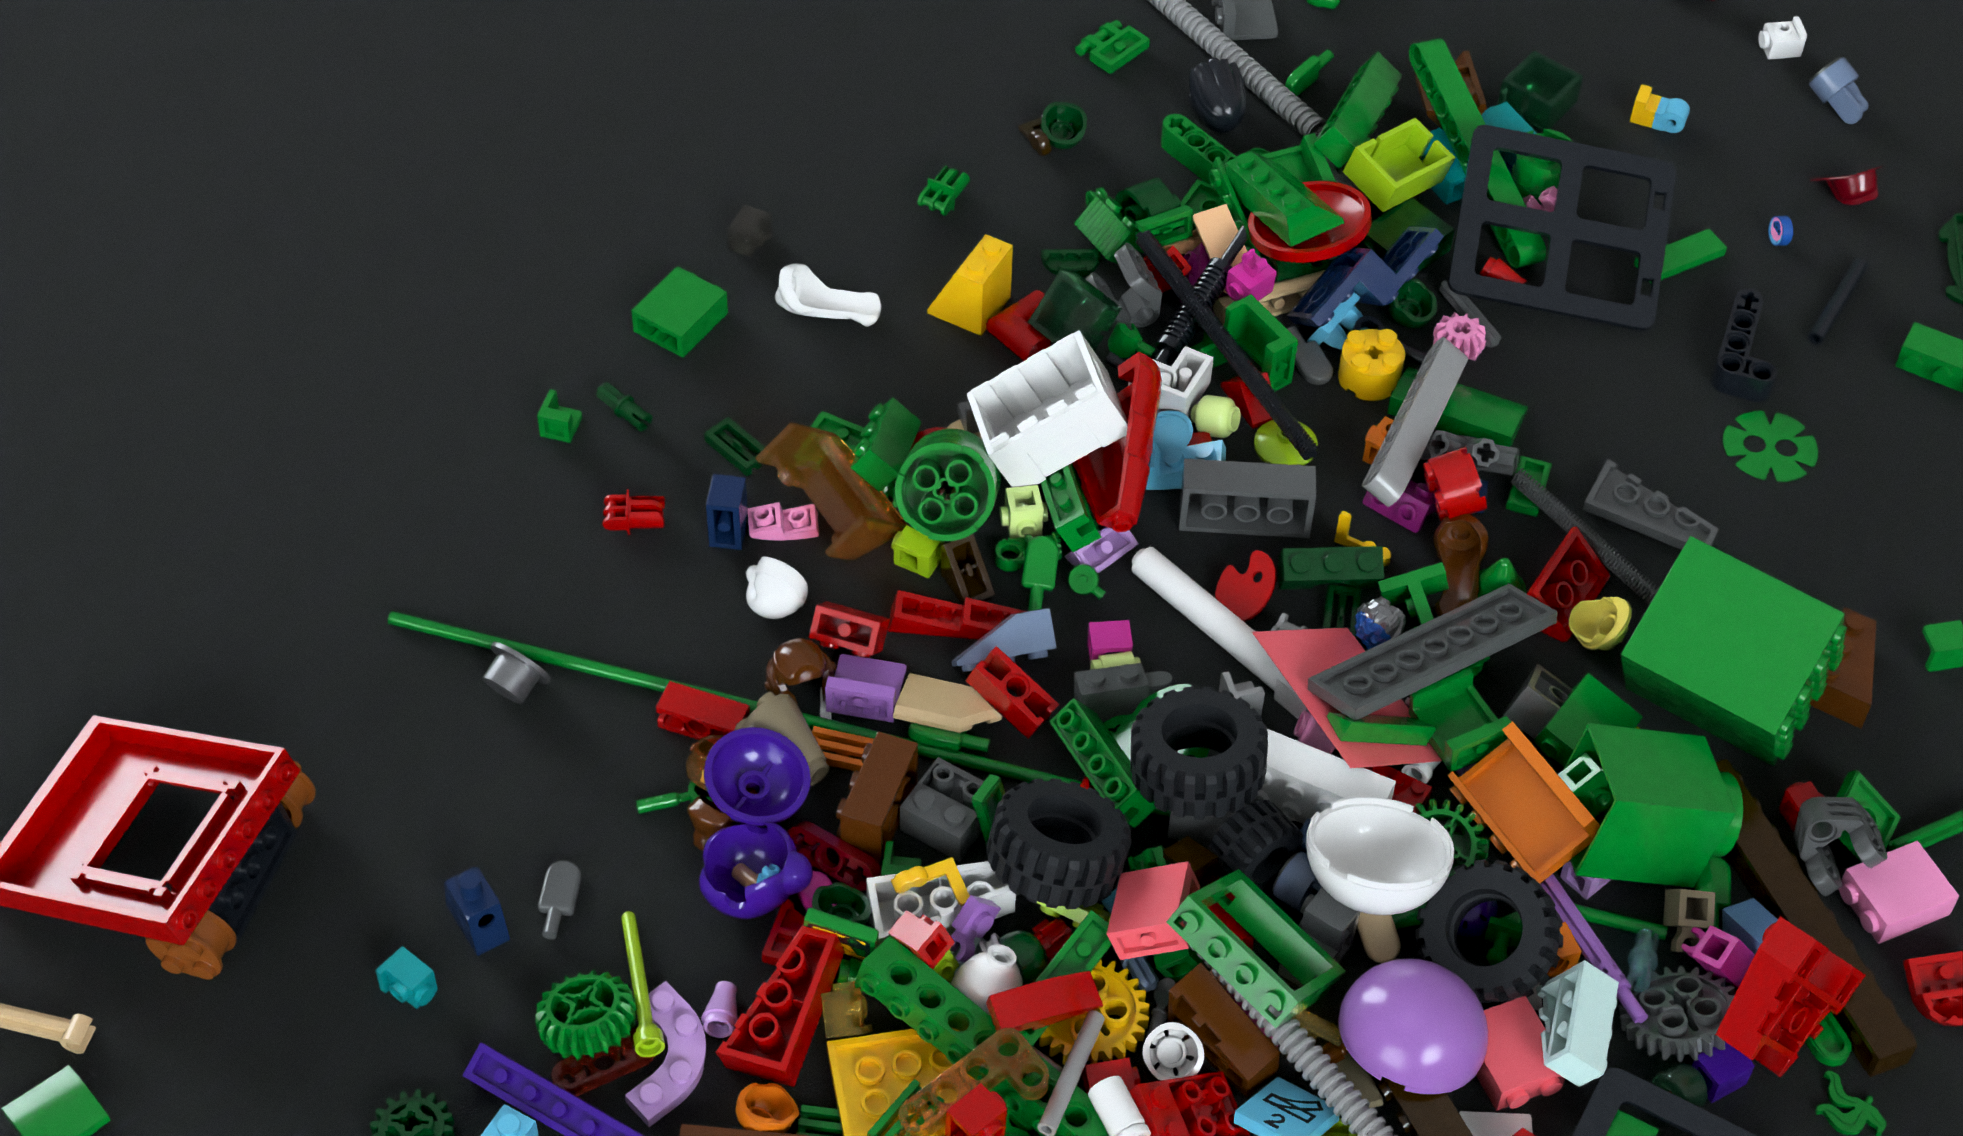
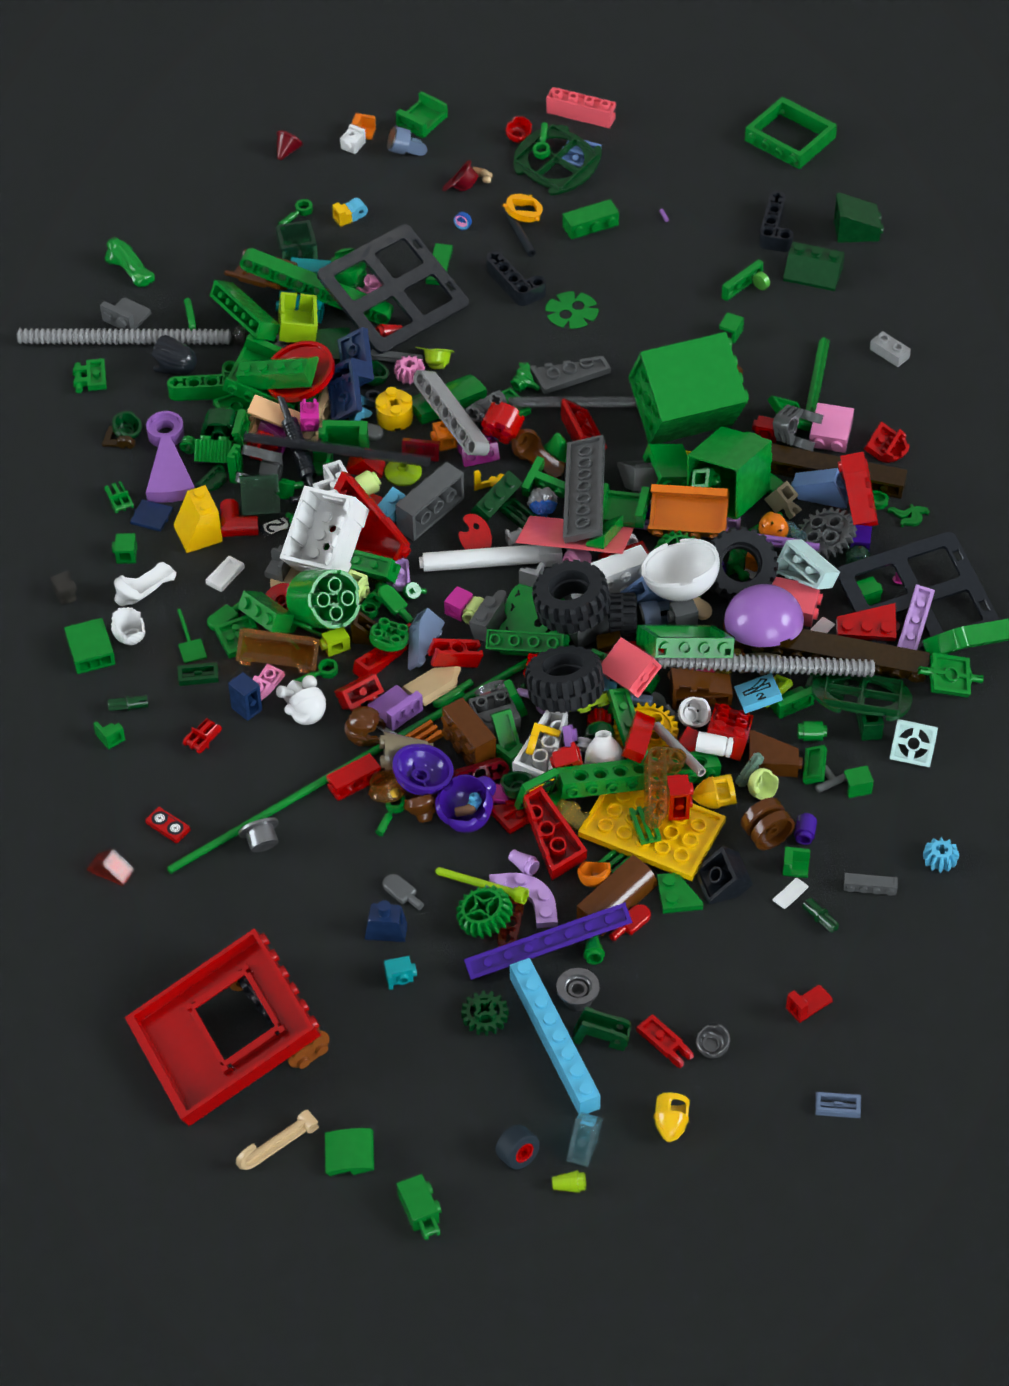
camera: 50 degrees left, 0 degrees up
(346, 557) = (111, 867): none -> slope
(463, 570) = (167, 825): none -> tile
(737, 325) = (127, 626): none -> white hair
(774, 416) = (193, 649): none -> green piece
(800, 558) = (295, 686): none -> white piece
(851, 410) = (223, 615): none -> green piece
(862, 565) = (323, 673): none -> green piece
(868, 247) = (125, 548): none -> green brick
(923, 833) = (505, 729): none -> green tile
(927, 370) = (225, 573): none -> white tile
(951, 240) = (151, 515): none -> dark blue piece
(973, 600) = (389, 635): none -> green tile
(982, 770) = (490, 687): none -> clear piece
(1035, 212) = (169, 477): none -> medium lavender piece
(1092, 257) = (234, 462): none -> green tile
(1335, 434) = (421, 447): none -> dark red tile
(1511, 349) = (437, 357): none -> lime piece
(1582, 467) = (523, 379): none -> green animal
(1600, 622) = (615, 426): light yellow piece -> none
(1604, 66) = (299, 211): none -> green piece
(1619, 933) = (767, 528): none -> orange helmet
(1721, 954) = (813, 500): dark pink brick -> none
(1822, 34) = (366, 122): none -> orange panel
(1890, 267) = (522, 200): none -> light orange piece
(1892, 201) = (487, 176): none -> tan arm
(1911, 80) = (423, 115): none -> green panel

